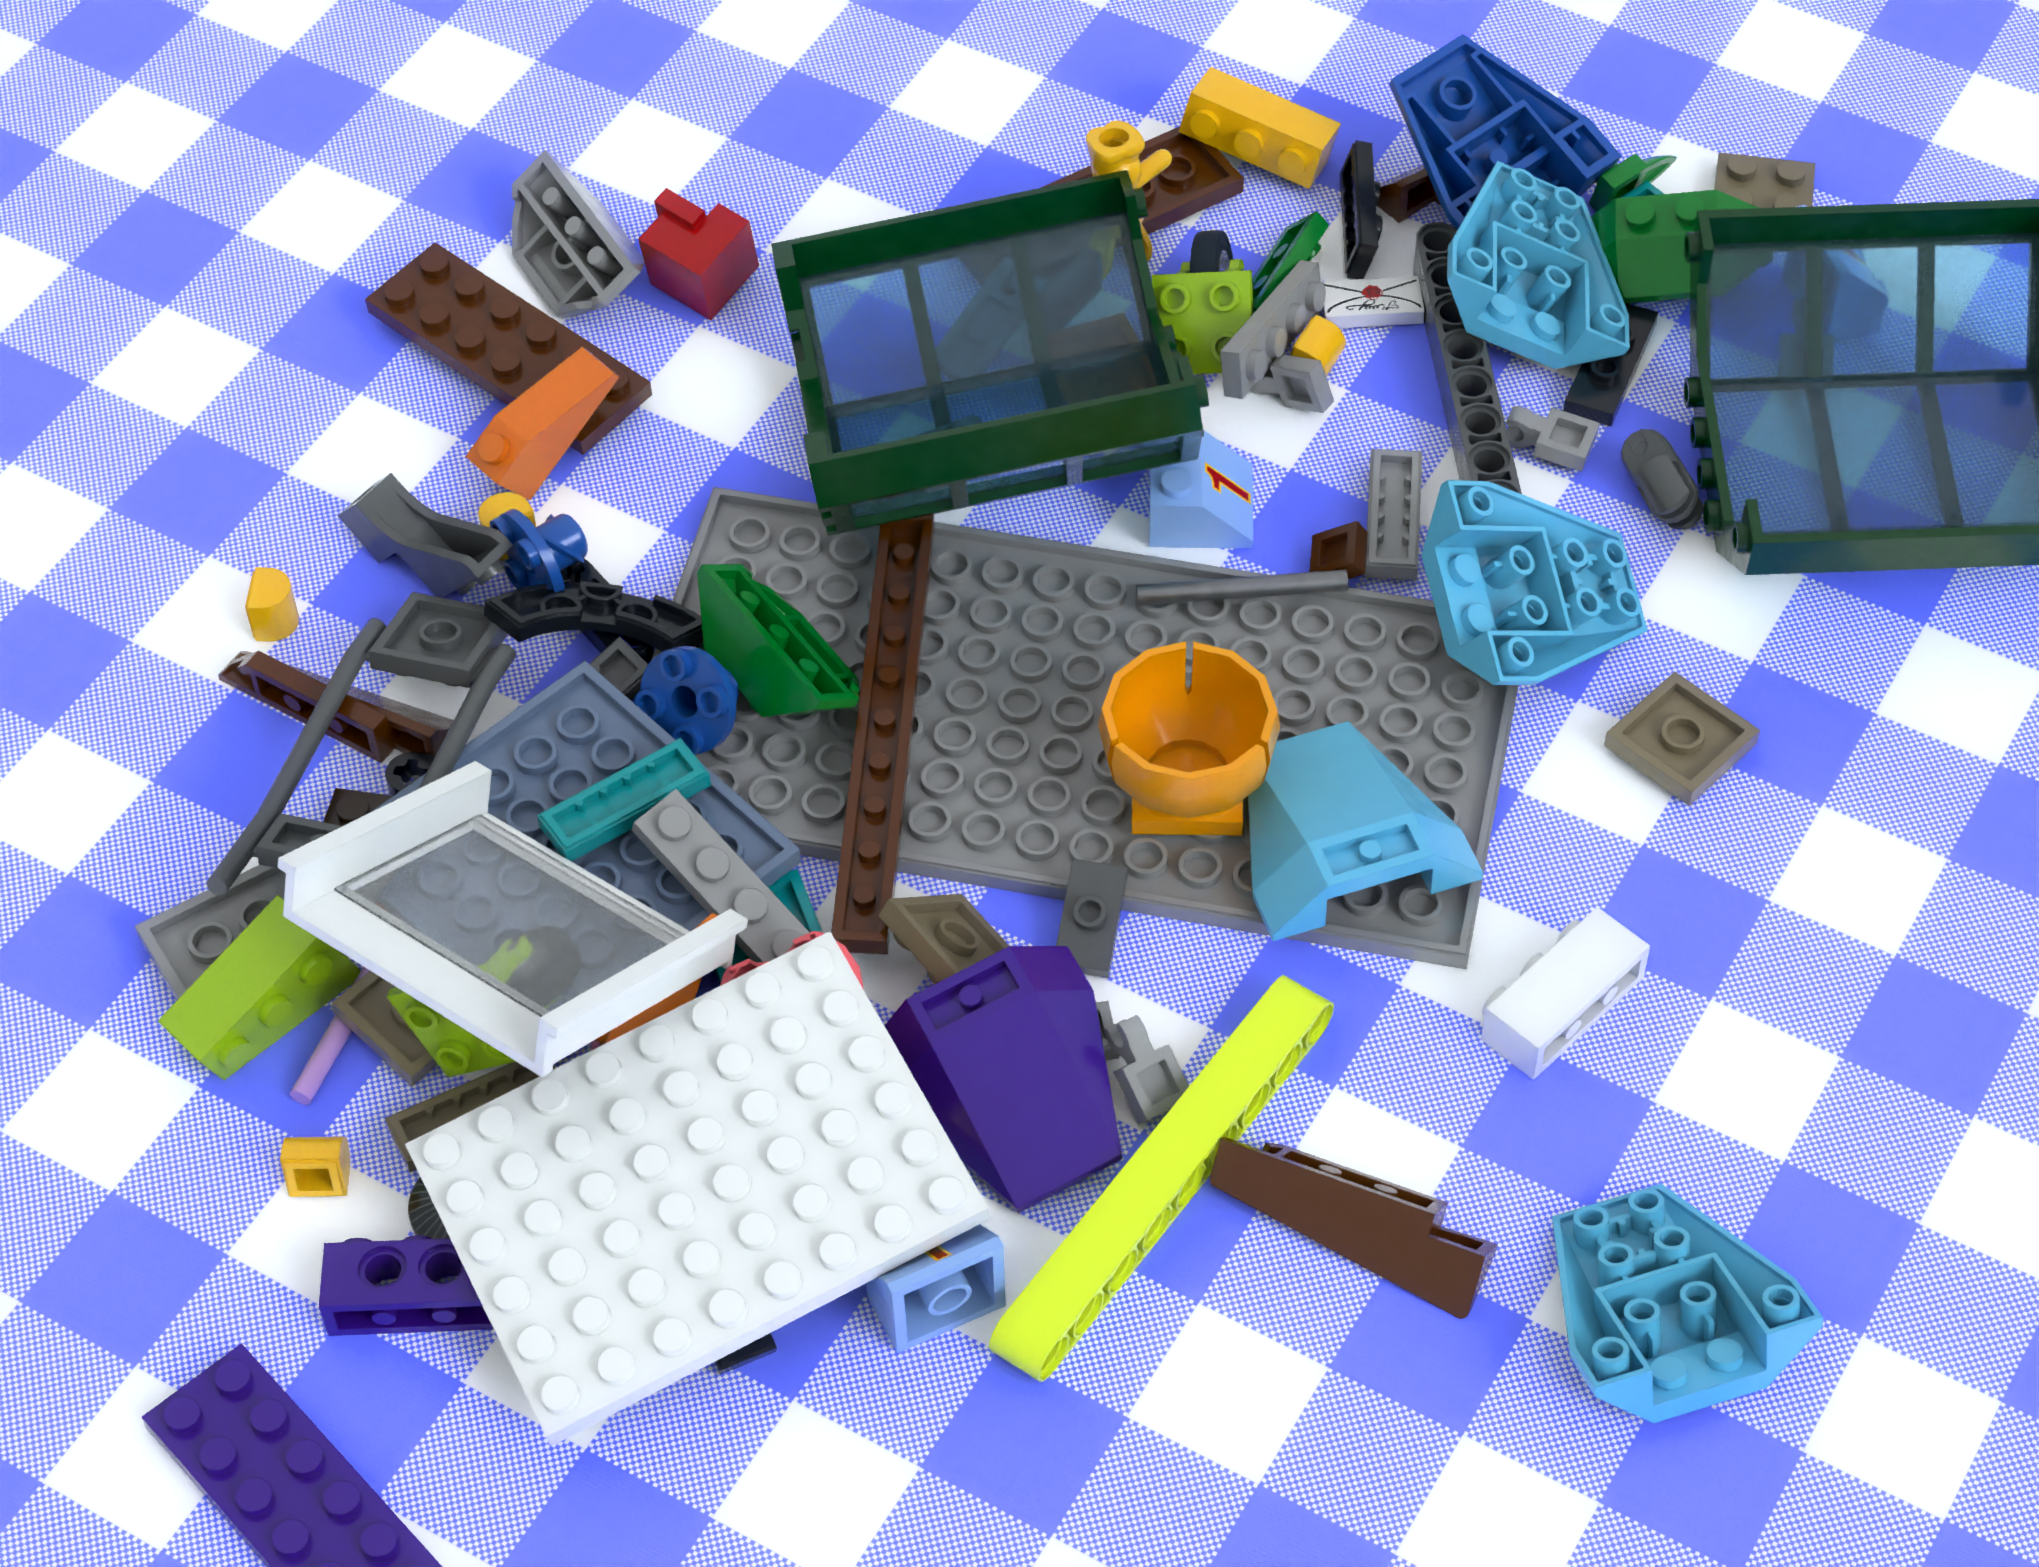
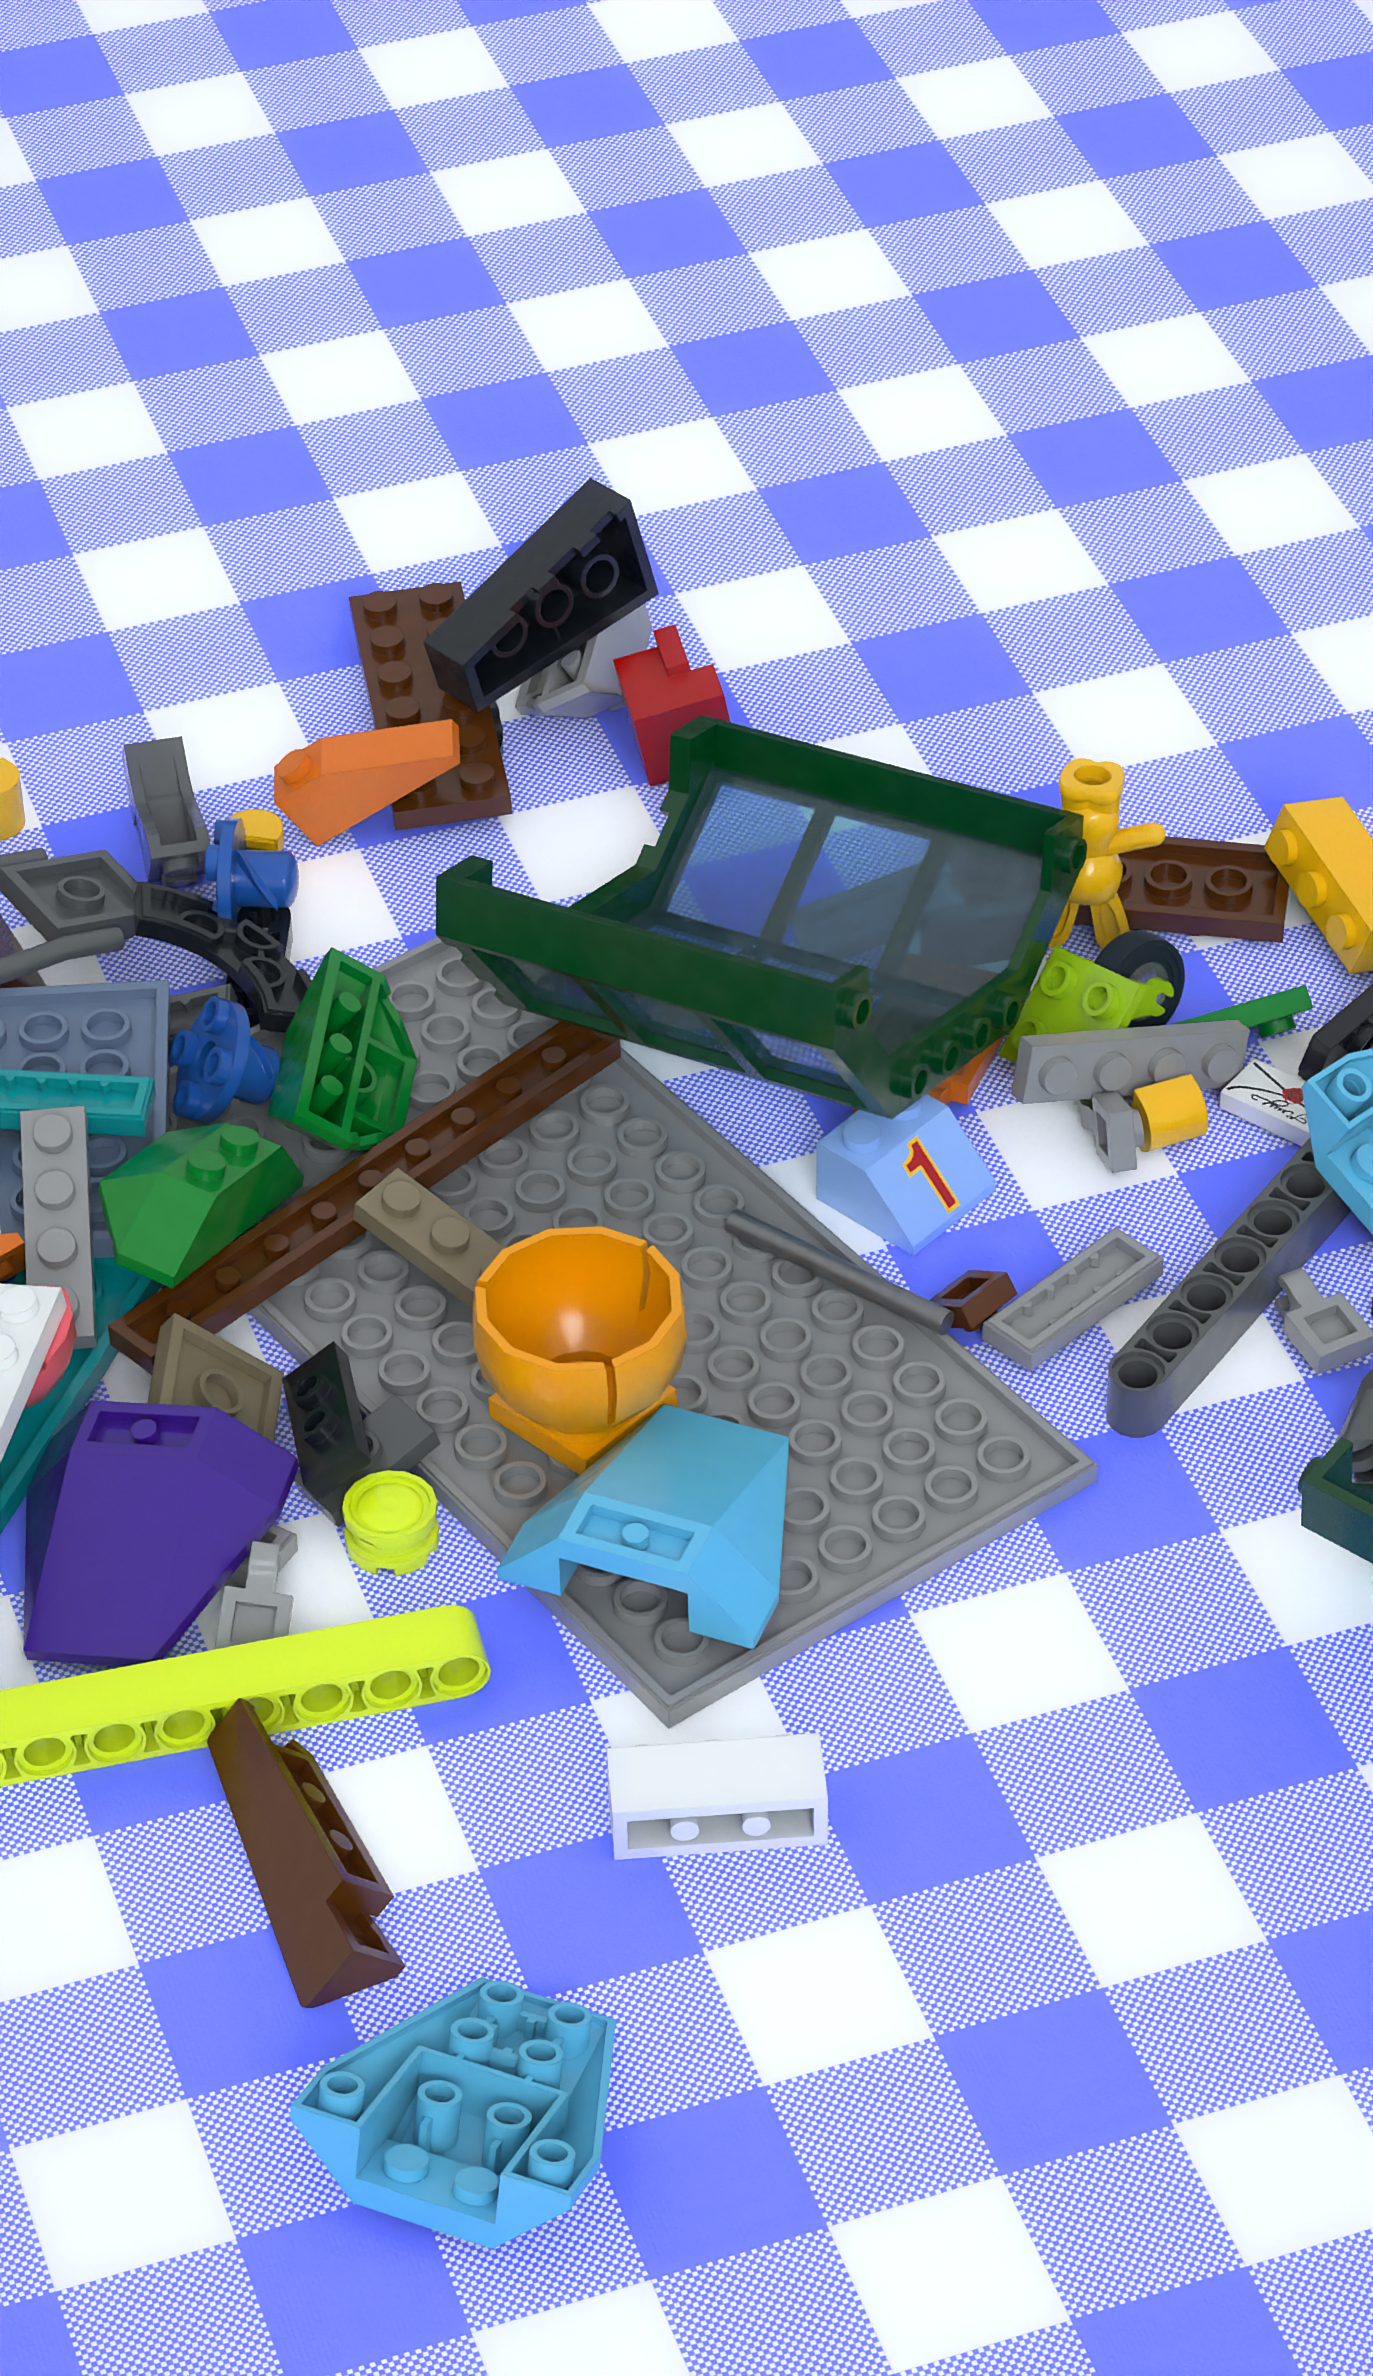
camera: 40 degrees right, 10 degrees down
(557, 219) = (545, 599): none -> black wedge
(797, 810) = (192, 1197): none -> green wedge
(989, 732) = (427, 1233): none -> dark tan plate
(1047, 907) = (326, 1421): none -> black plate
(1153, 950) = (390, 1522): none -> neon yellow wheel
(1525, 584) = (1098, 1419): medium azure wedge -> none
(1681, 738) = (1112, 1658): dark tan plate -> none

